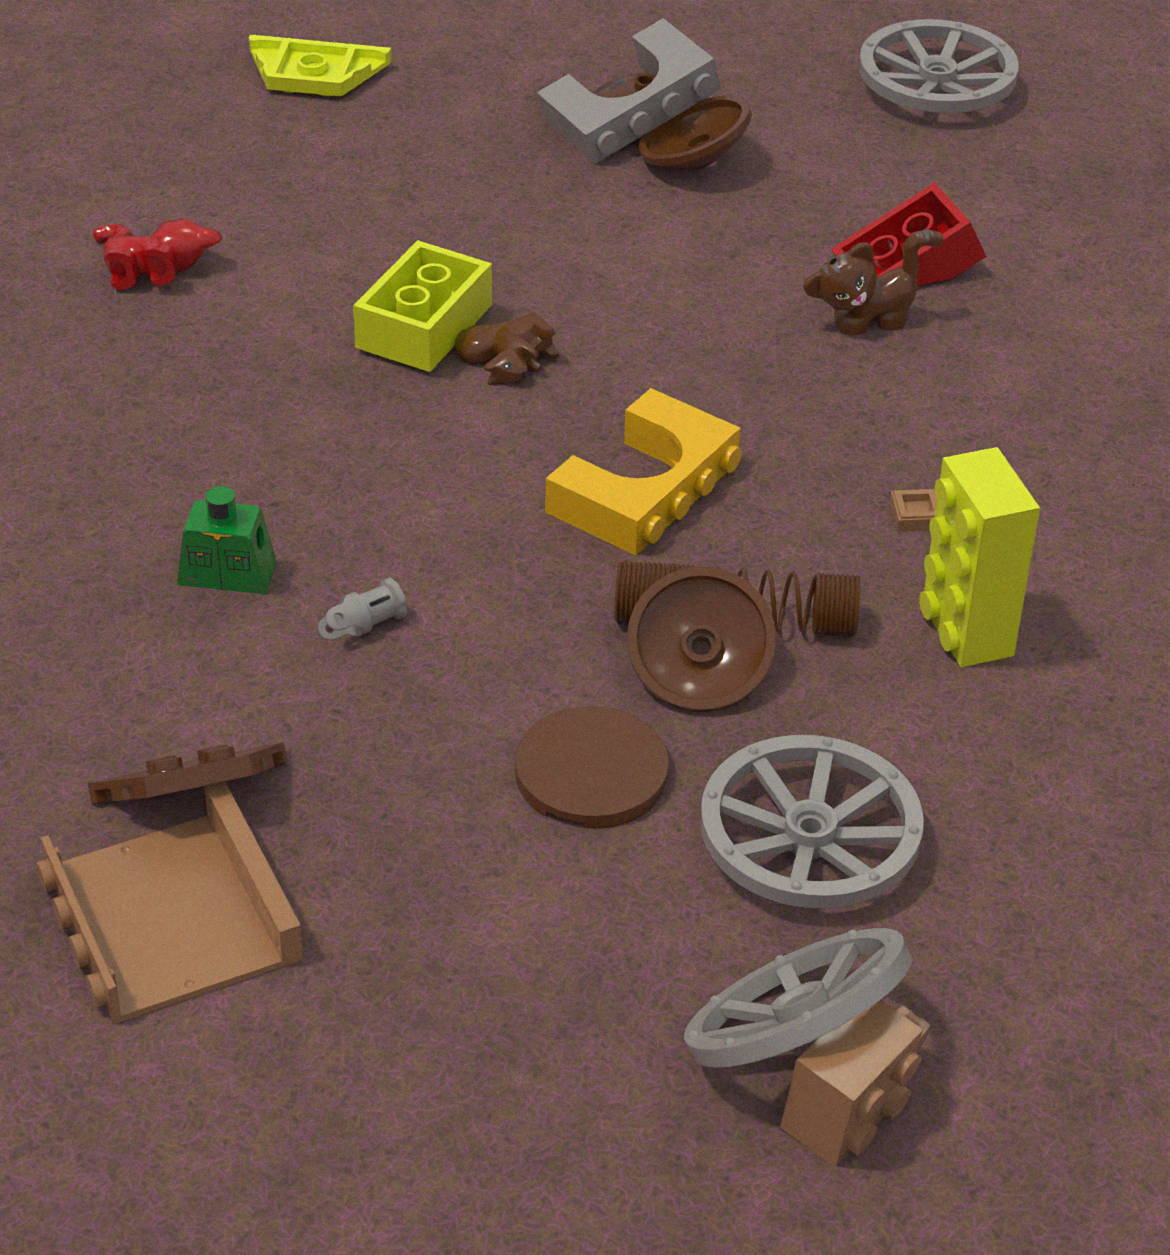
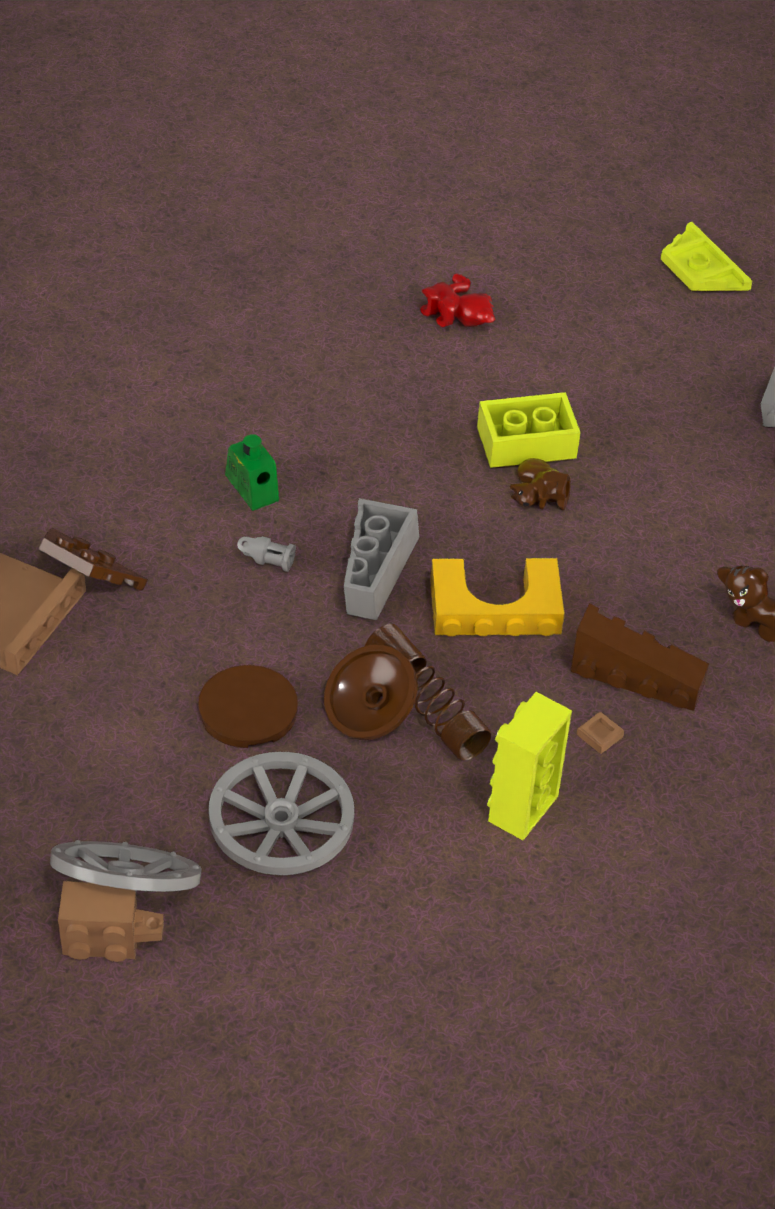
camera: 50 degrees right, 5 degrees up
(482, 521) = (378, 555): none -> light grey wedge
(854, 421) = (636, 662): none -> reddish brown wedge

